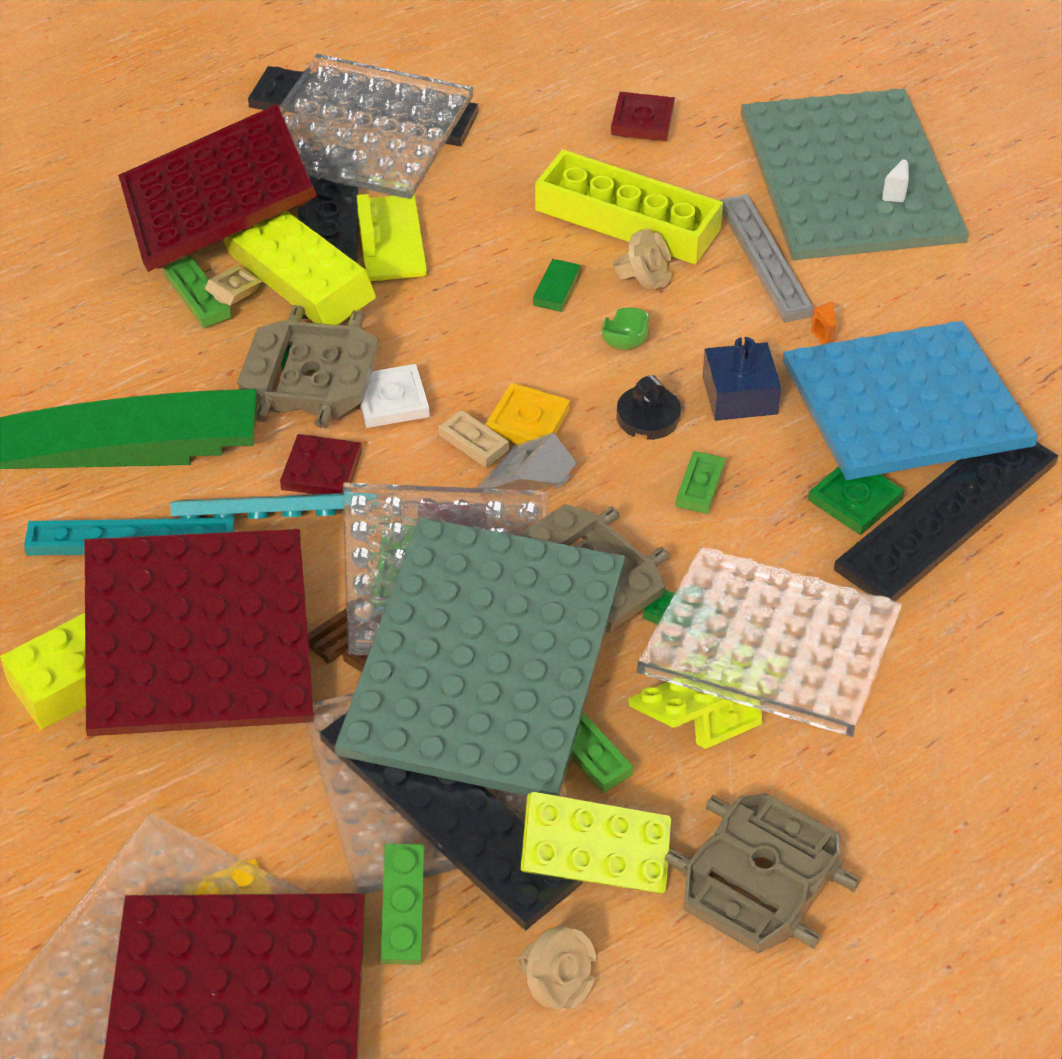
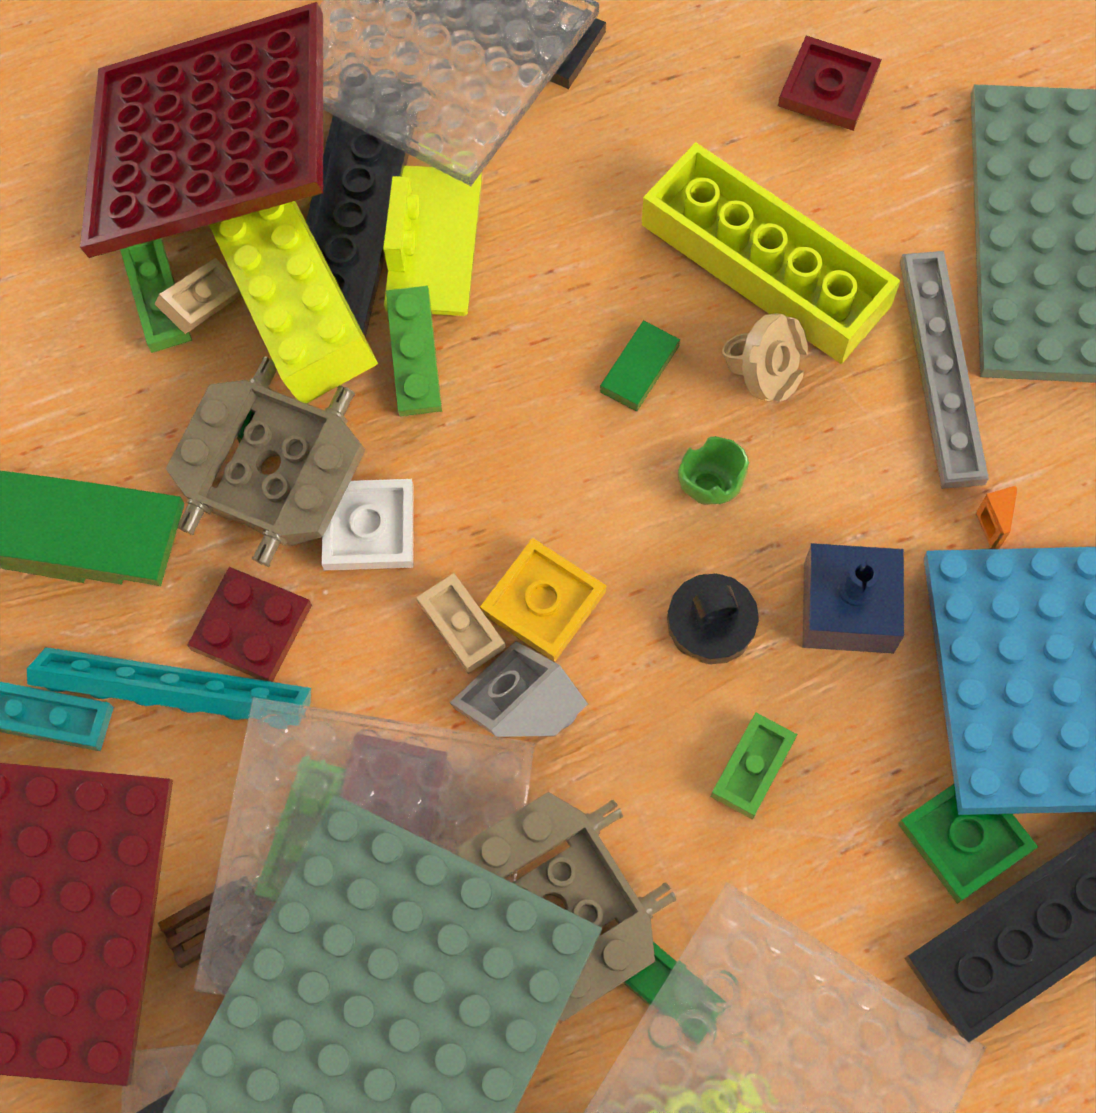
camera: 15 degrees right, 20 degrees up
(395, 297) = (413, 351): none -> bright green plate

